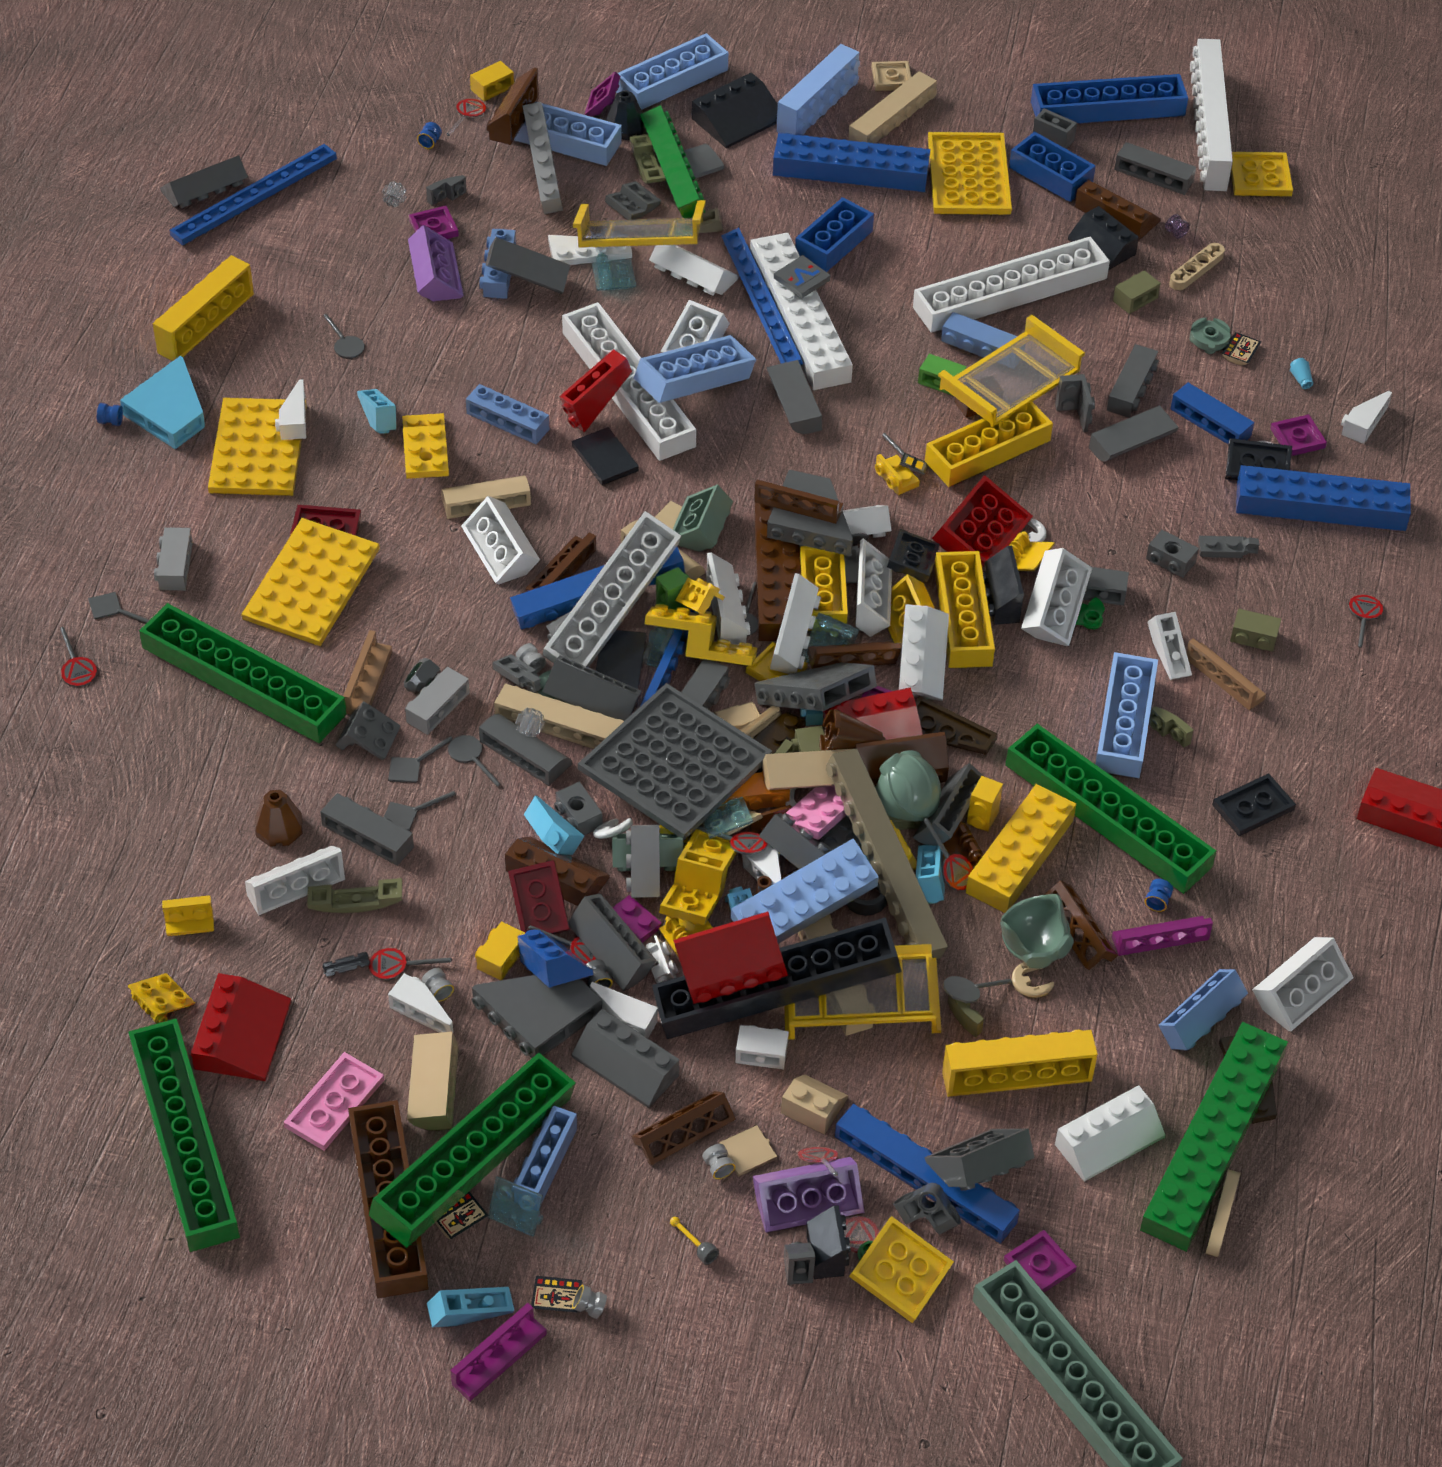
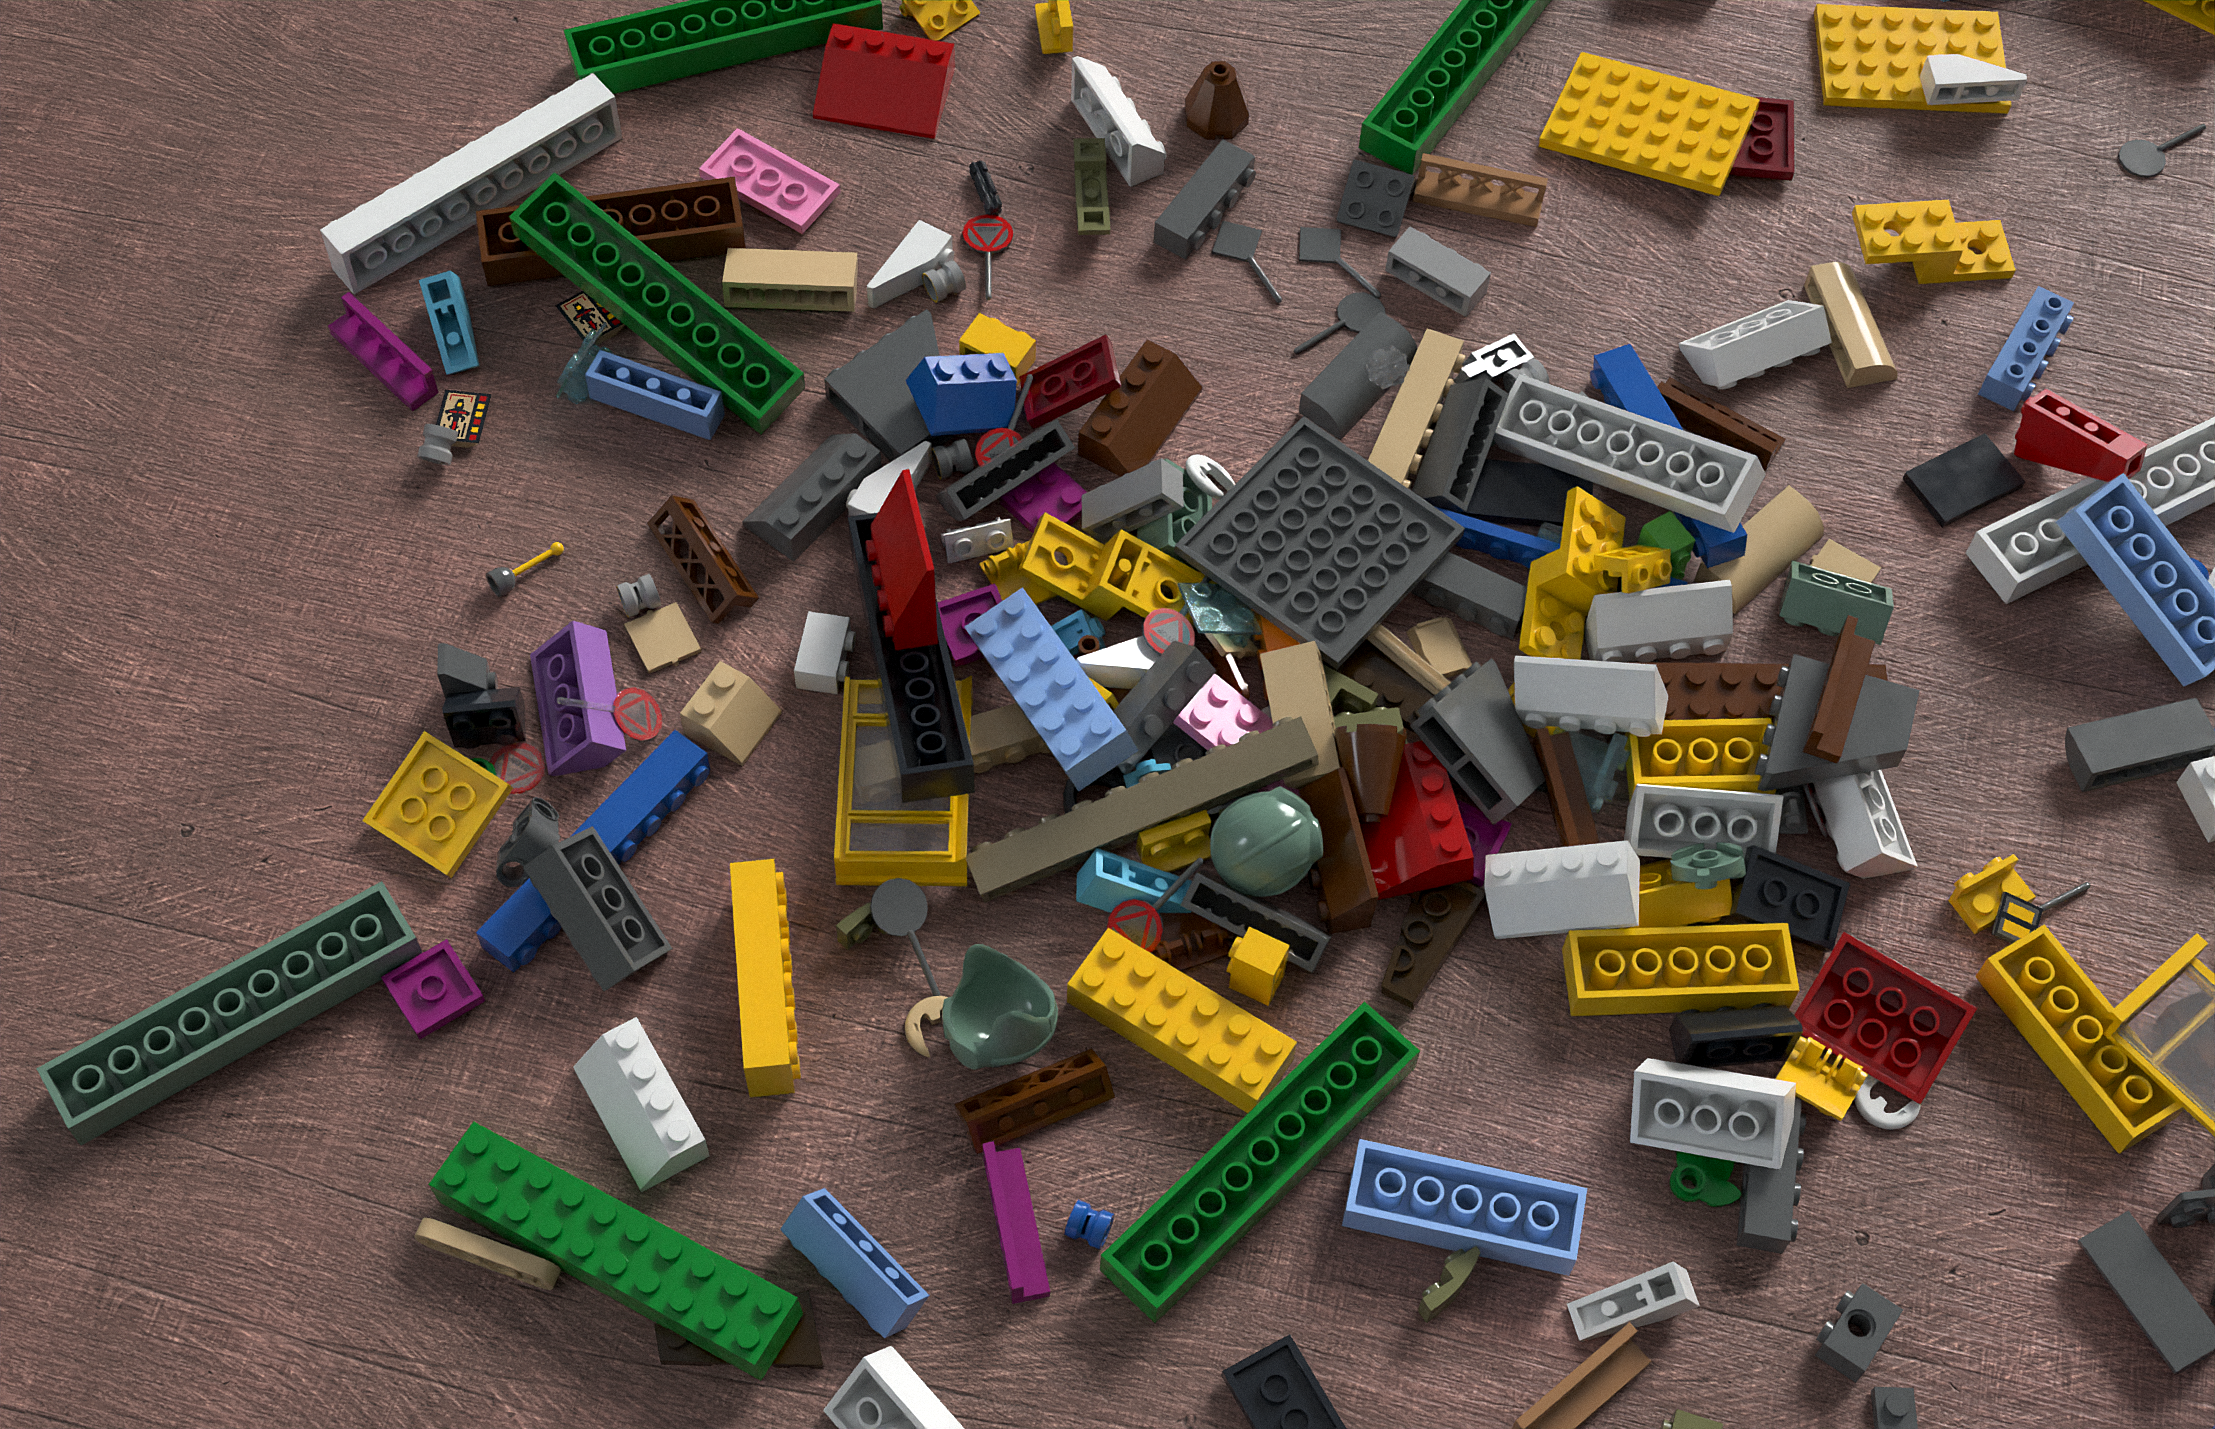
camera: 90 degrees right, 10 degrees up
(338, 1296) = (477, 177): none -> white brick
(378, 410) = (2004, 186): medium azure slope -> none
(421, 675) = (1482, 251): dark grey rock -> none
(553, 828) = (1197, 408): medium azure slope -> none
(578, 808) = (1237, 452): dark grey brick -> none
(914, 581) = (1707, 865): none -> sand green plate

